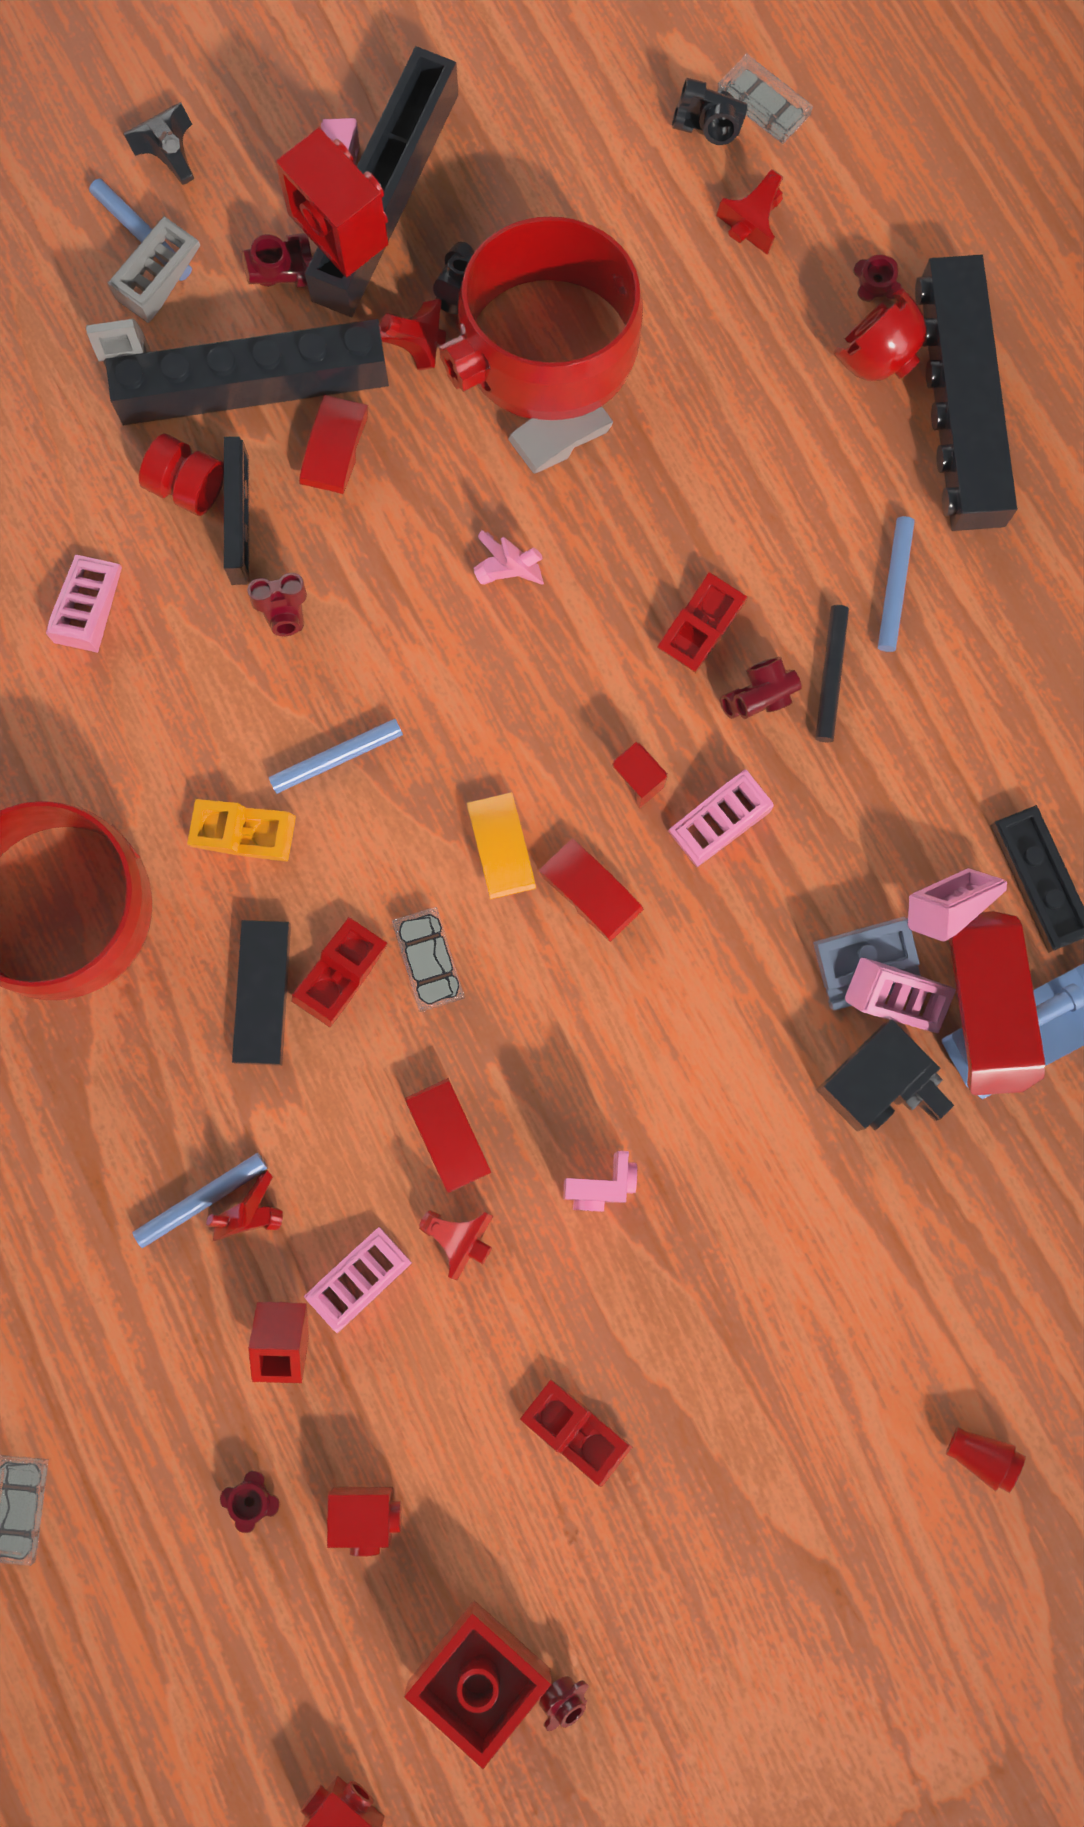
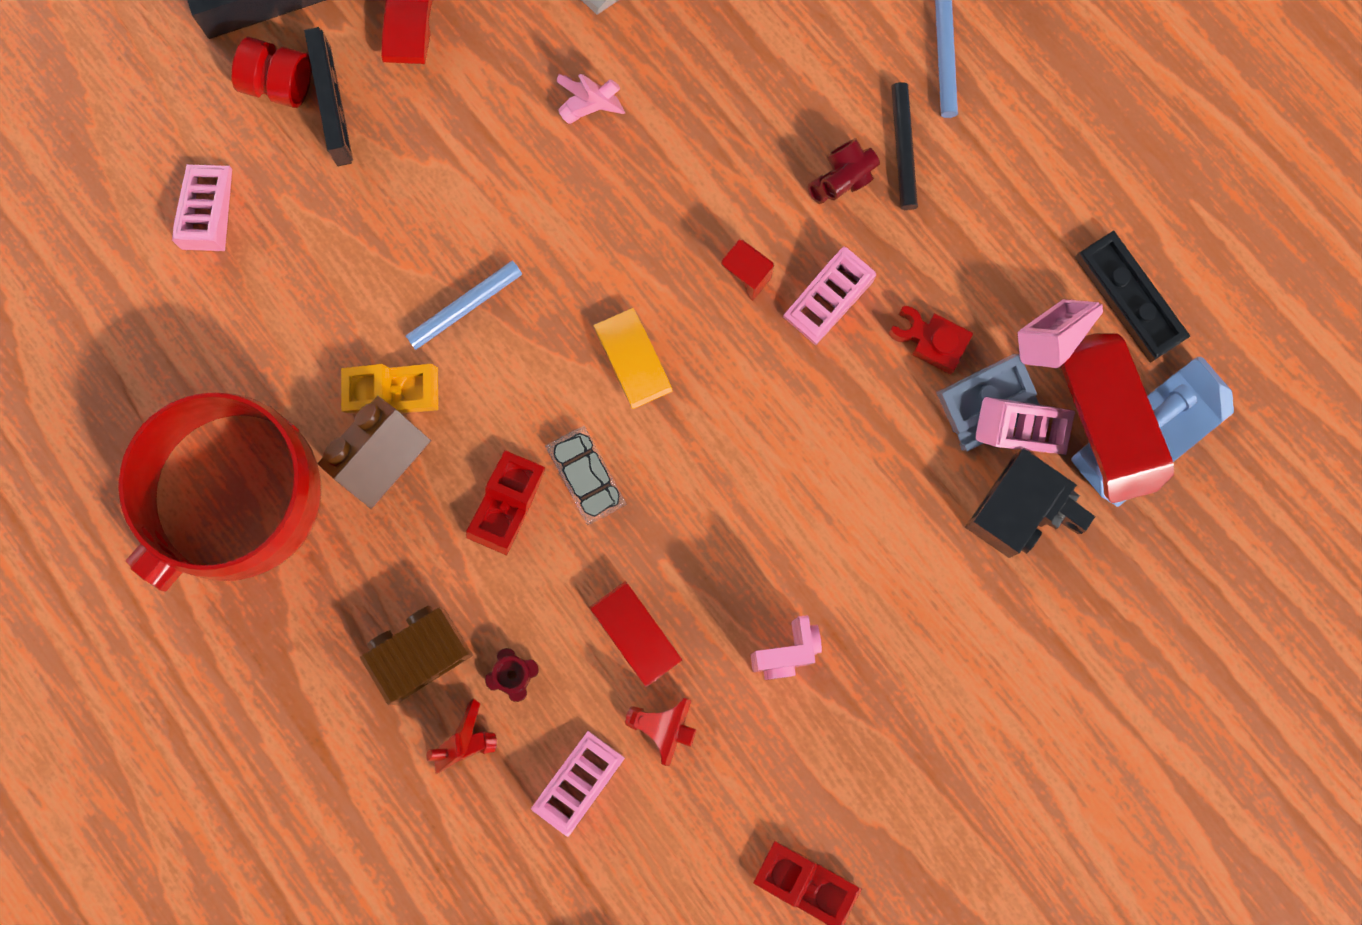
camera: 10 degrees left, 0 degrees up
(199, 1200) = (416, 738): medium blue bar -> none
(212, 893) = (373, 451): none -> brick
(215, 1113) = (415, 655): none -> reddish brown brick
(261, 993) = (437, 535): black tile -> none
(279, 1342) = (515, 856): red brick -> none
(280, 602) = (385, 172): dark red plate -> none
(297, 1153) = (499, 676): none -> dark red plate
(591, 890) = (723, 383): red slope -> none
(702, 622) = (777, 121): red slope -> none
(826, 889) = (937, 342): none -> red plate
(987, 1458) = (1189, 834): red cone -> none

